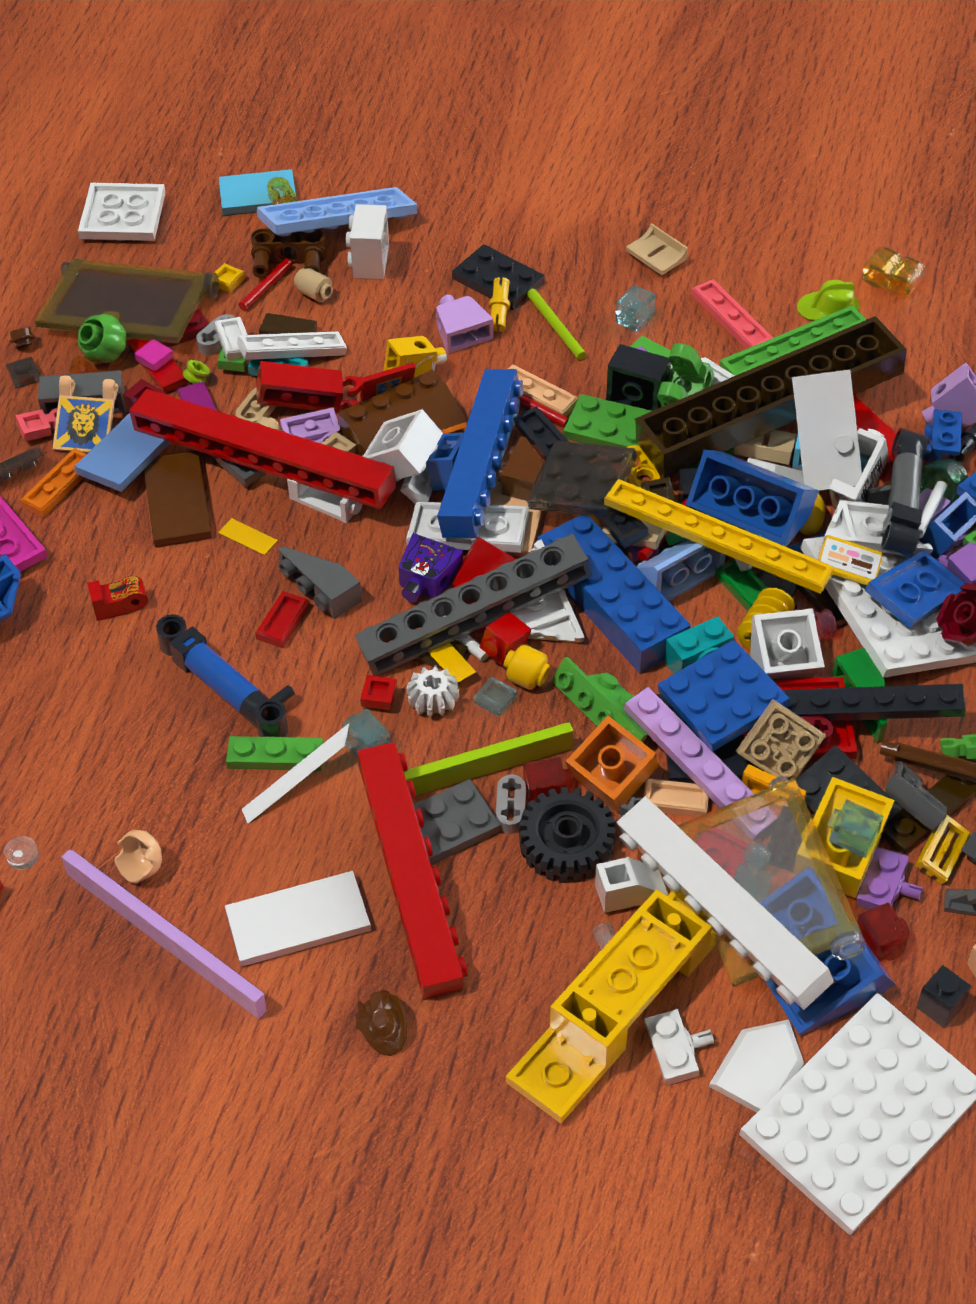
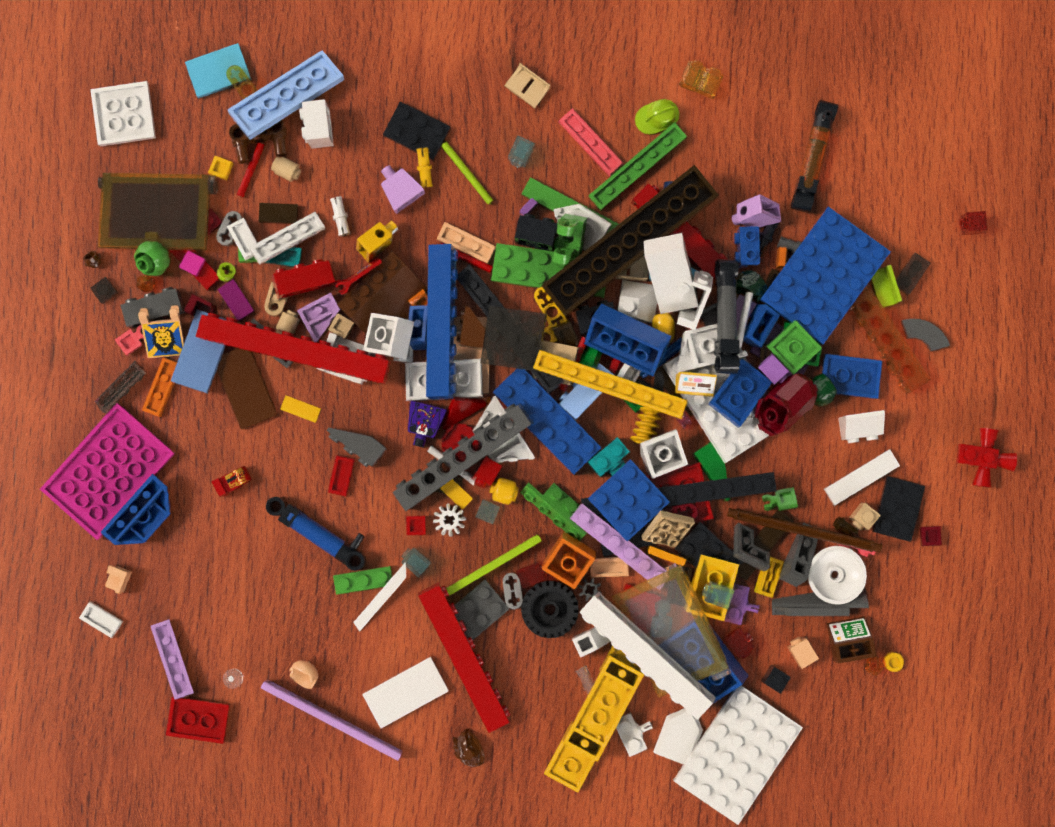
camera: 10 degrees left, 35 degrees up
(371, 341) = (340, 216): none -> white pin

